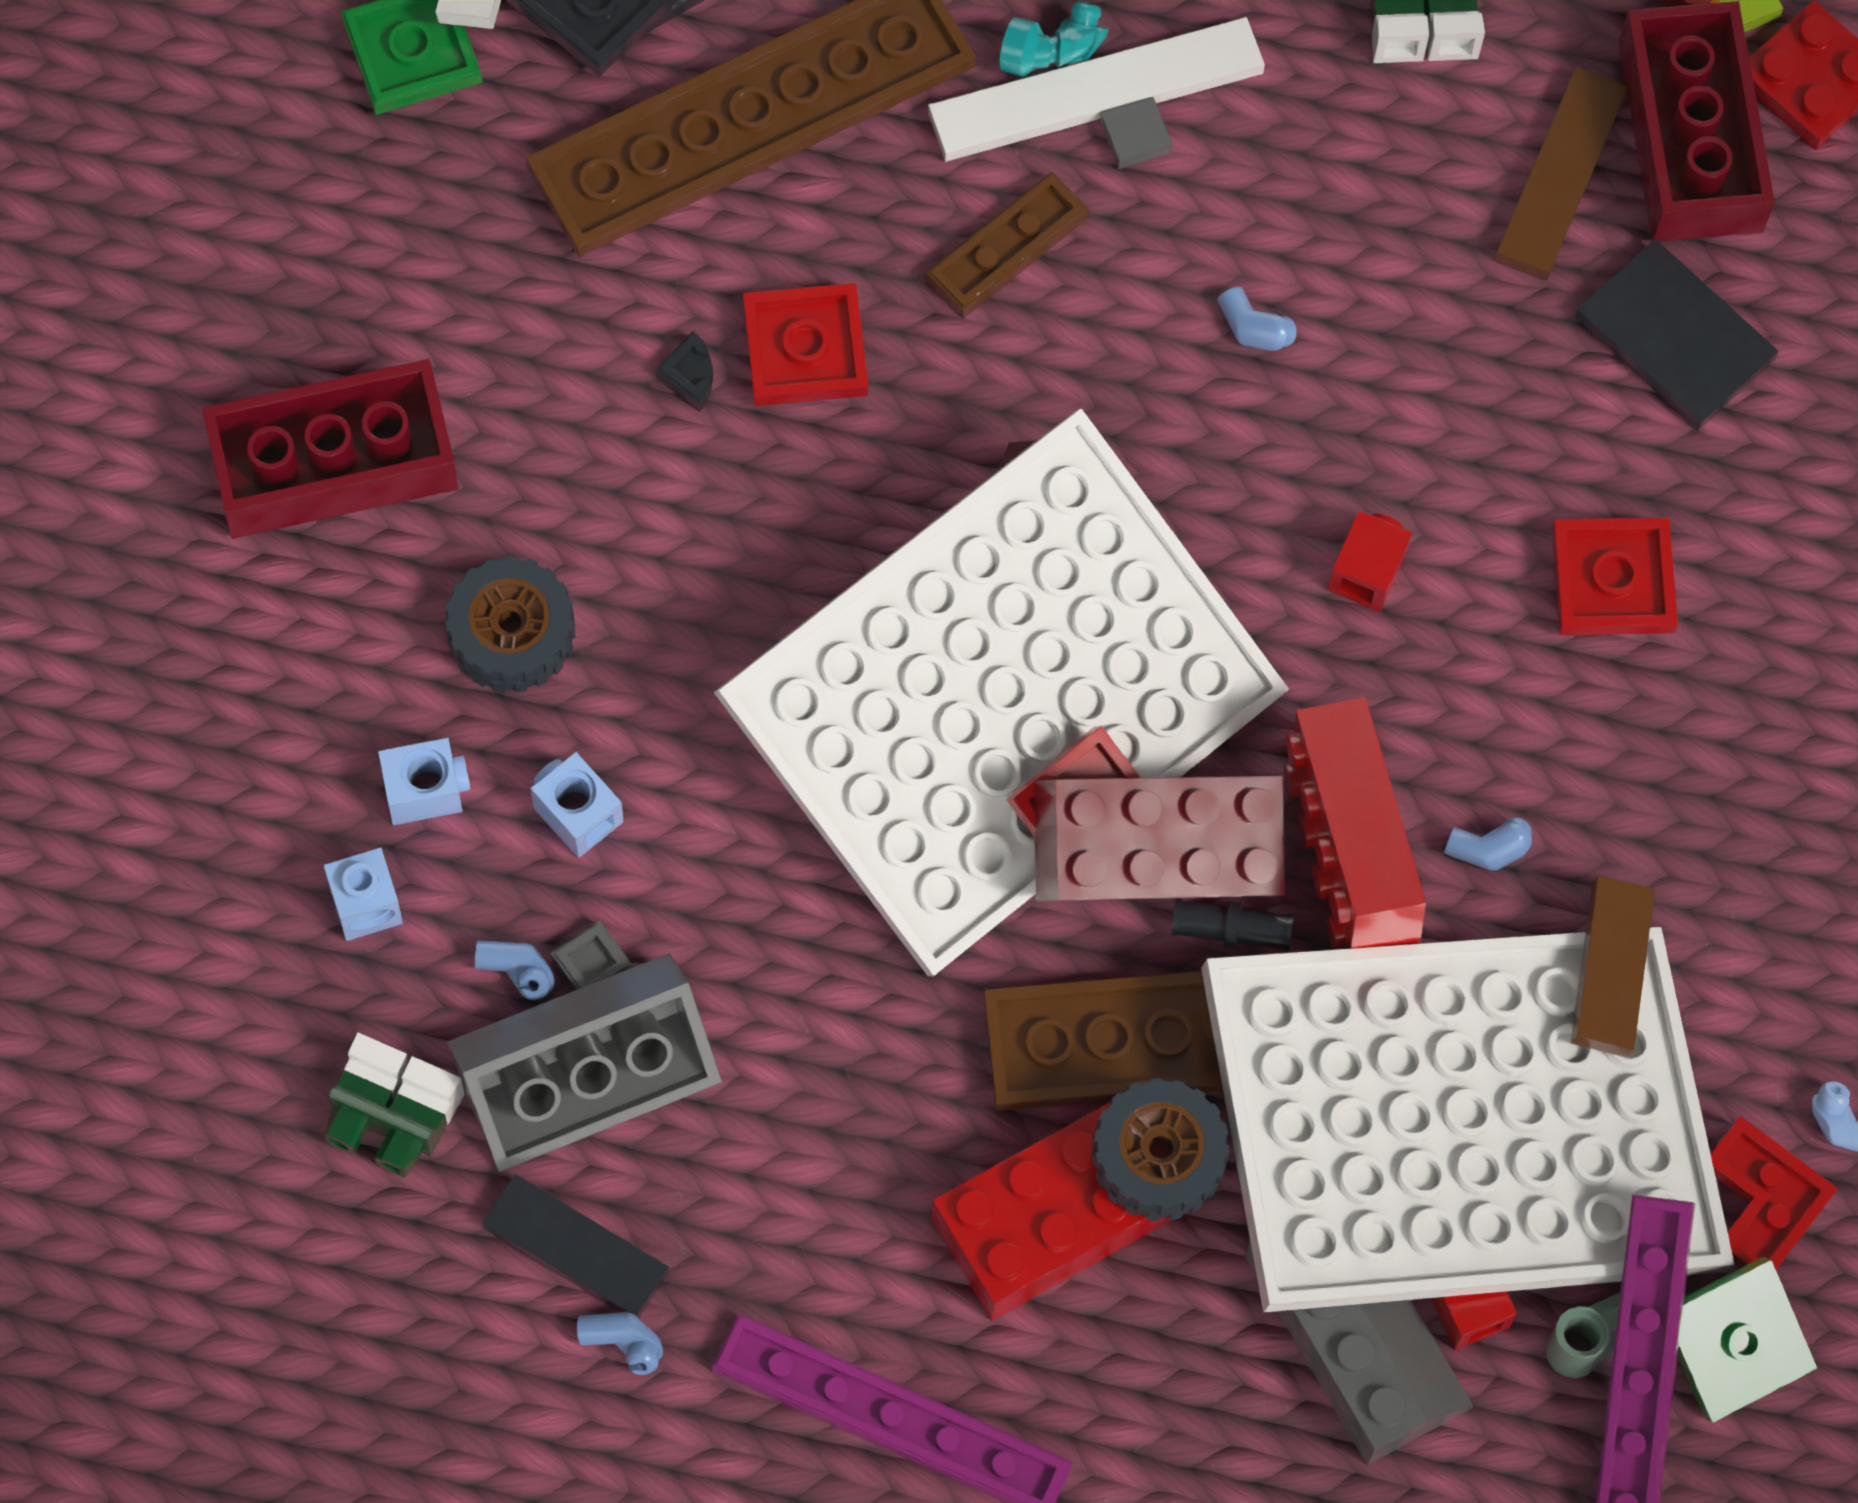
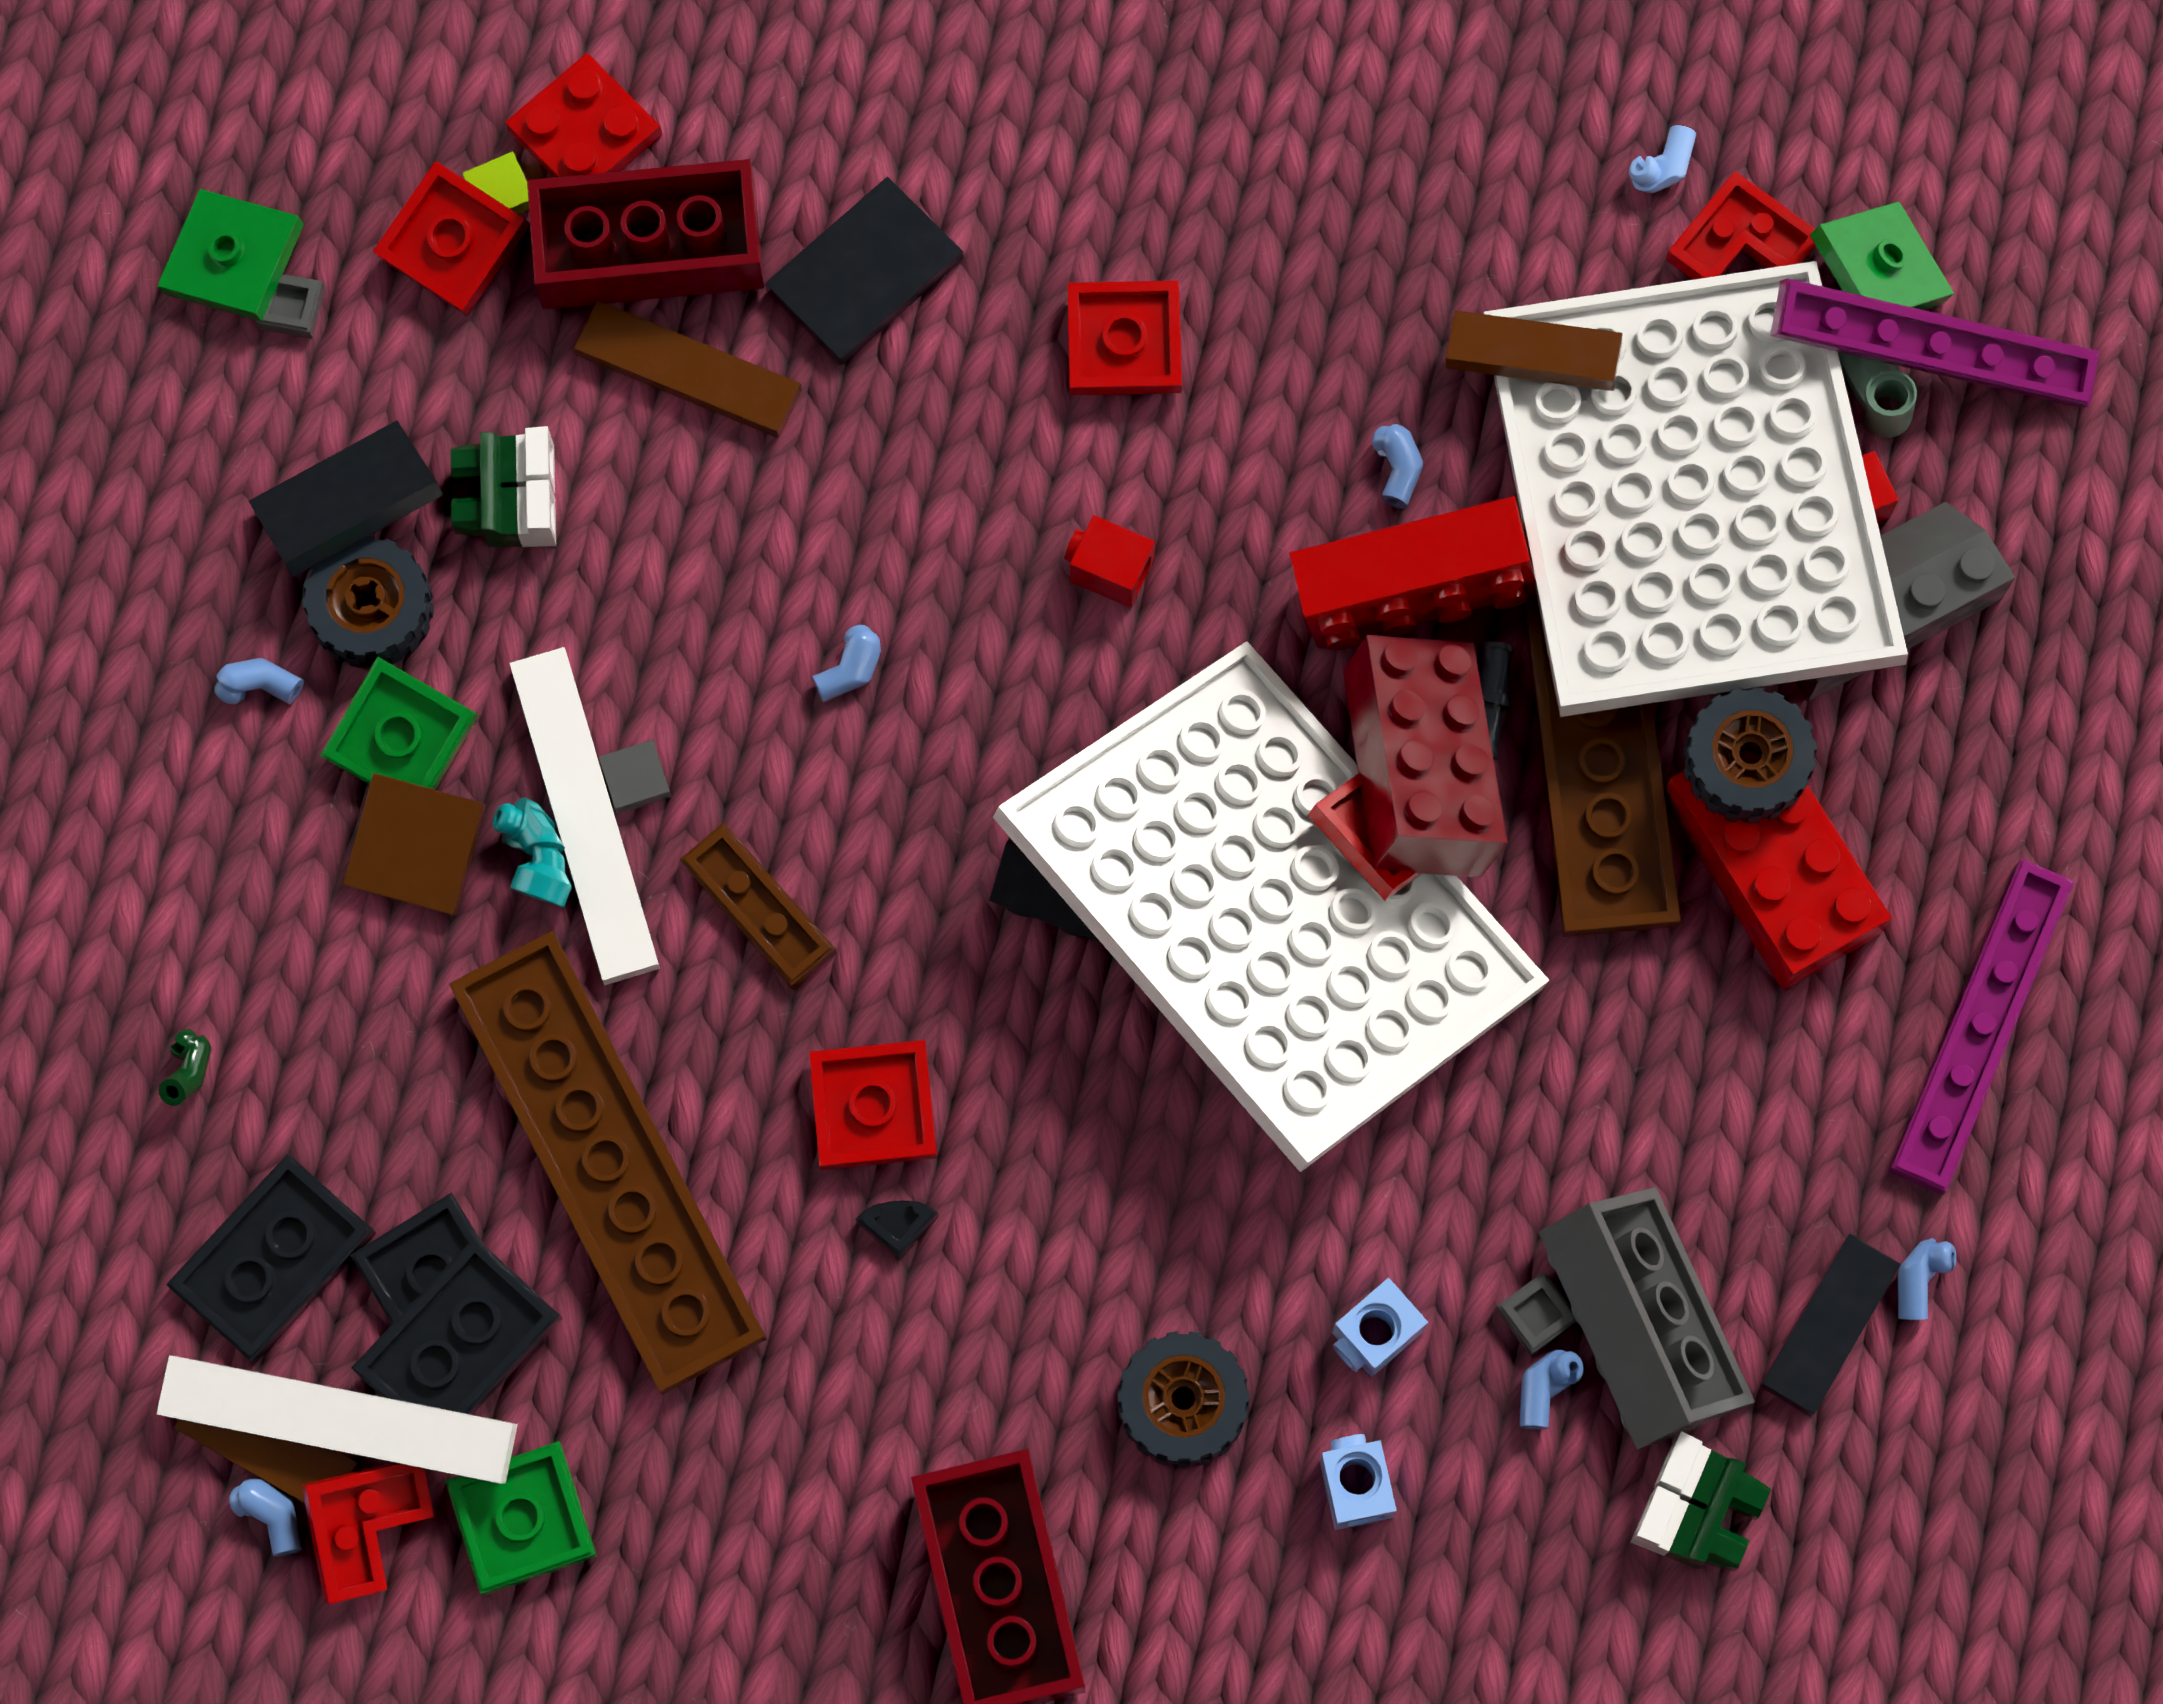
camera: 85 degrees left, 5 degrees up
(363, 894) = (1482, 1538): light blue brick -> none

